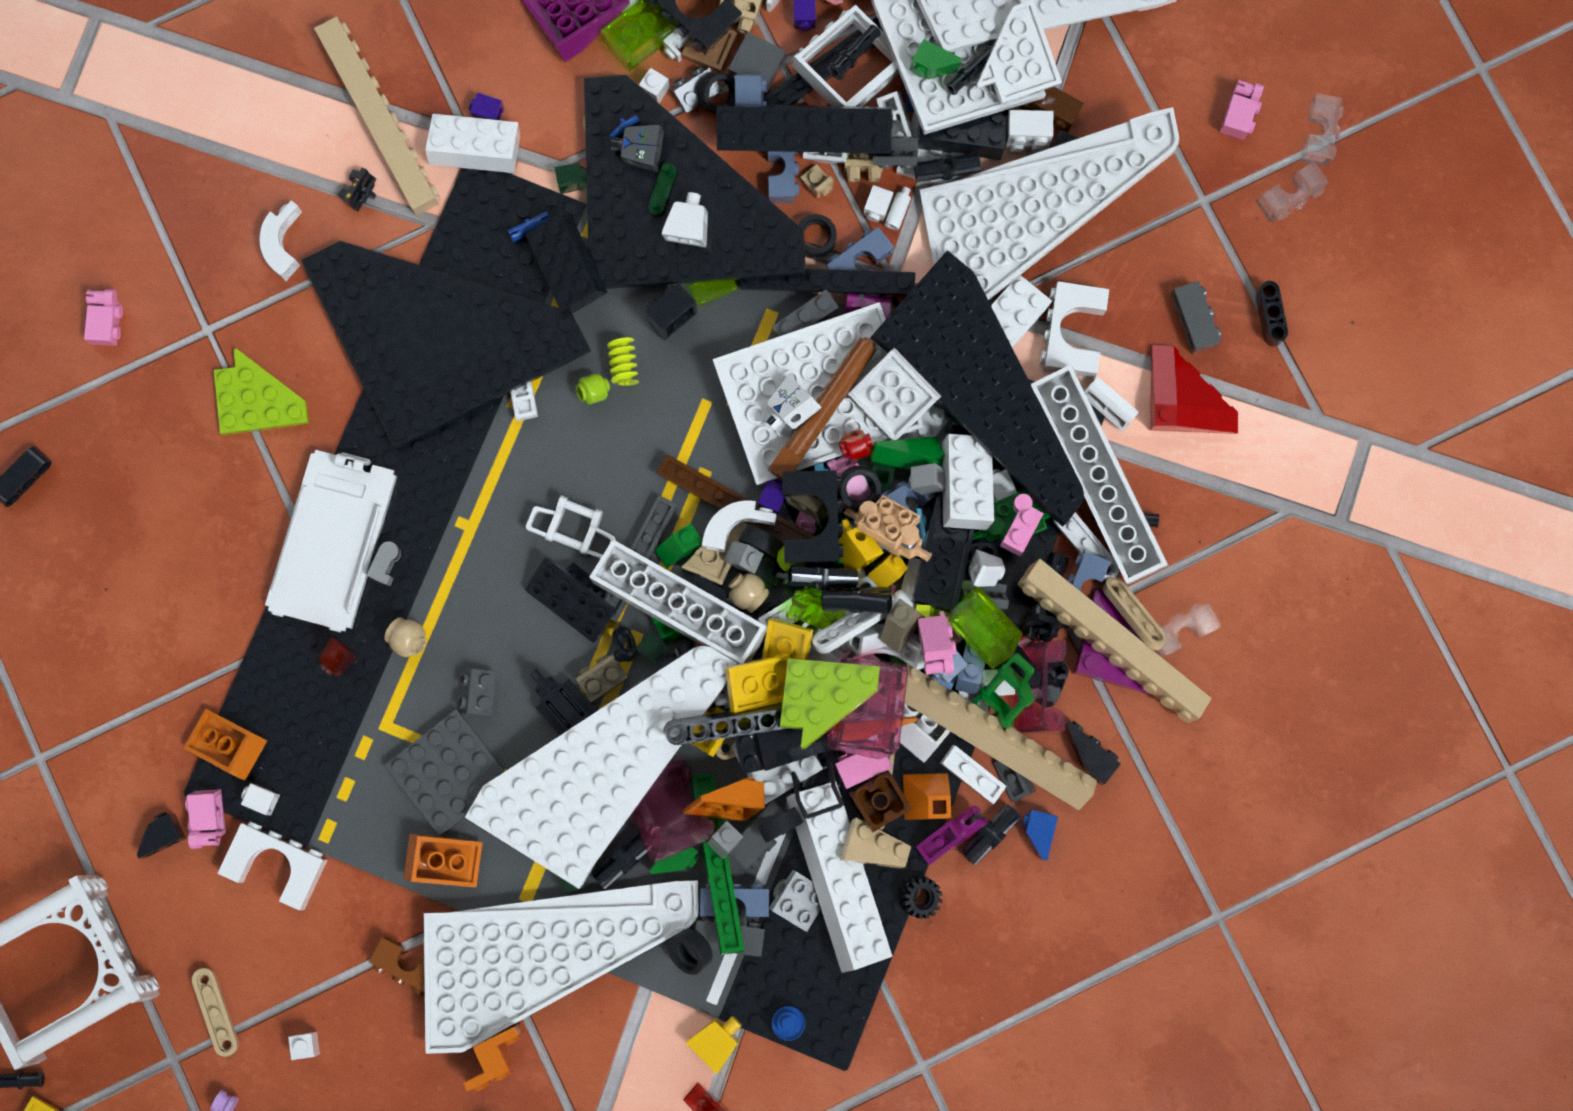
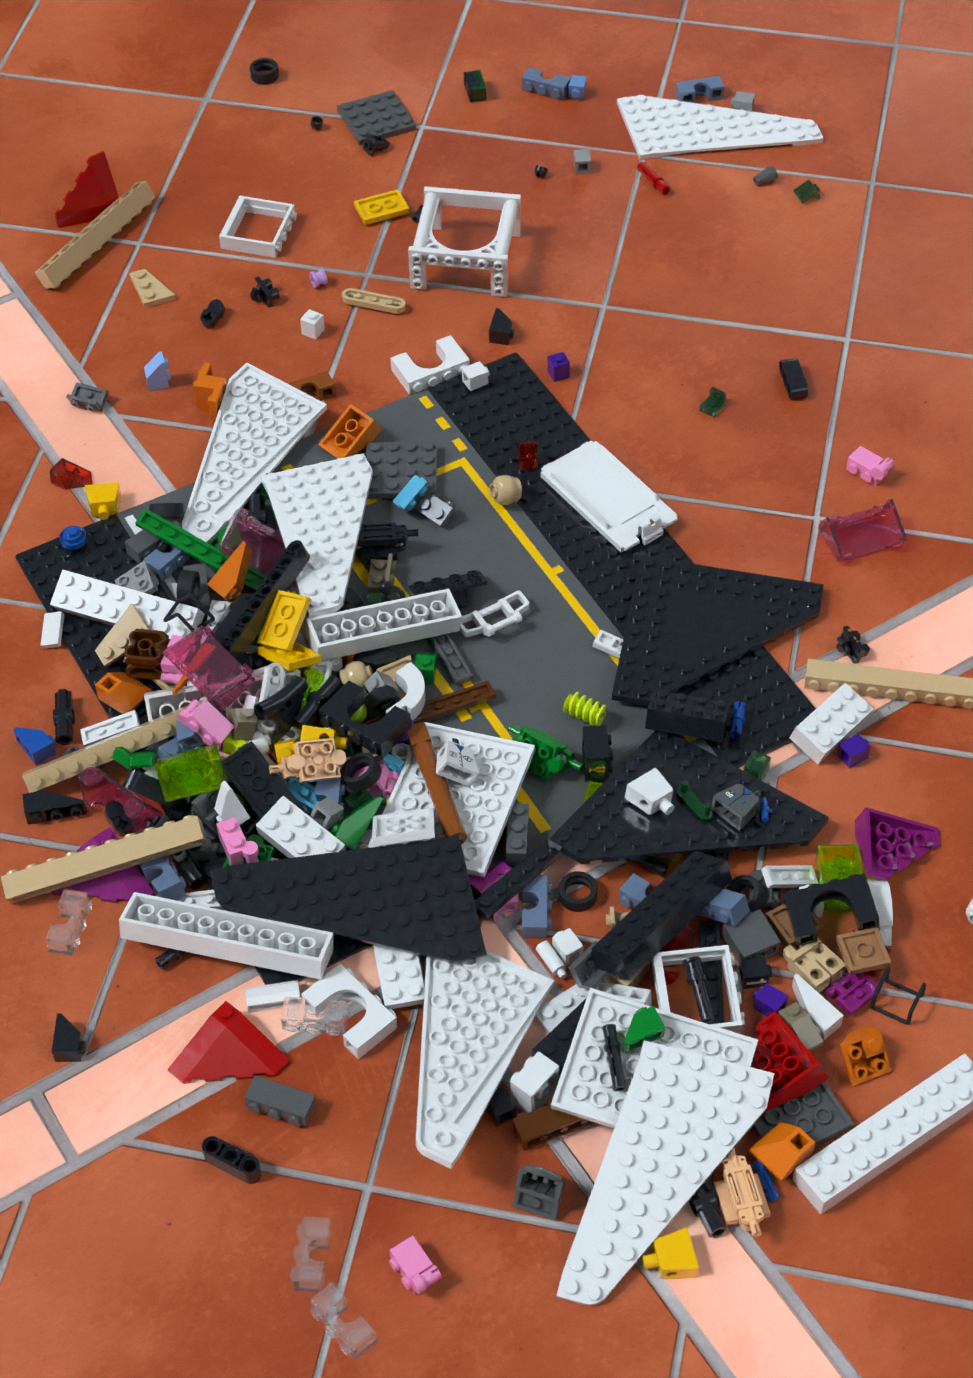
camera: 130 degrees right, 30 degrees down
(115, 533) = (714, 403): none -> clear green bracket
(178, 727) = (558, 366): none -> dark purple brick
(201, 269) = (863, 532): none -> clear pink windscreen
(205, 818) = (489, 348): bright pink hinge -> none
(225, 744) = (524, 377): orange slope -> none
(255, 399) = (744, 513): lime wing -> none
(272, 237) = (850, 577): white arch -> none
(383, 562) = (566, 508): light grey leg -> none
(482, 724) = (411, 493): none -> medium azure bracket
(592, 389) = (582, 681): lime head -> none
(655, 84) = (787, 856): white brick -> none
(674, 69) = (789, 876): none -> white plate
(698, 362) = (549, 752): none -> green piece
(725, 840) = (210, 557): light grey brick -> none
(786, 39) = (754, 972): none -> black brick
(824, 694) = (239, 639): lime wing -> none
(855, 444) = (393, 788): red head -> none
(908, 939) = (52, 630): none -> white tile
(932, 897) = (74, 657): black tyre -> none
(952, 834) = (85, 690): magenta plate -> none
(960, 166) = (548, 1013): black piece -> none
(1020, 57) = (594, 1096): white wing -> none
(1095, 336) = (331, 1020): none -> clear arch
(1106, 65) = (539, 1191): none -> dark grey piece
(1134, 613) = (105, 890): tan plate -> none
(1283, 529) = (67, 1041): none -> black slope

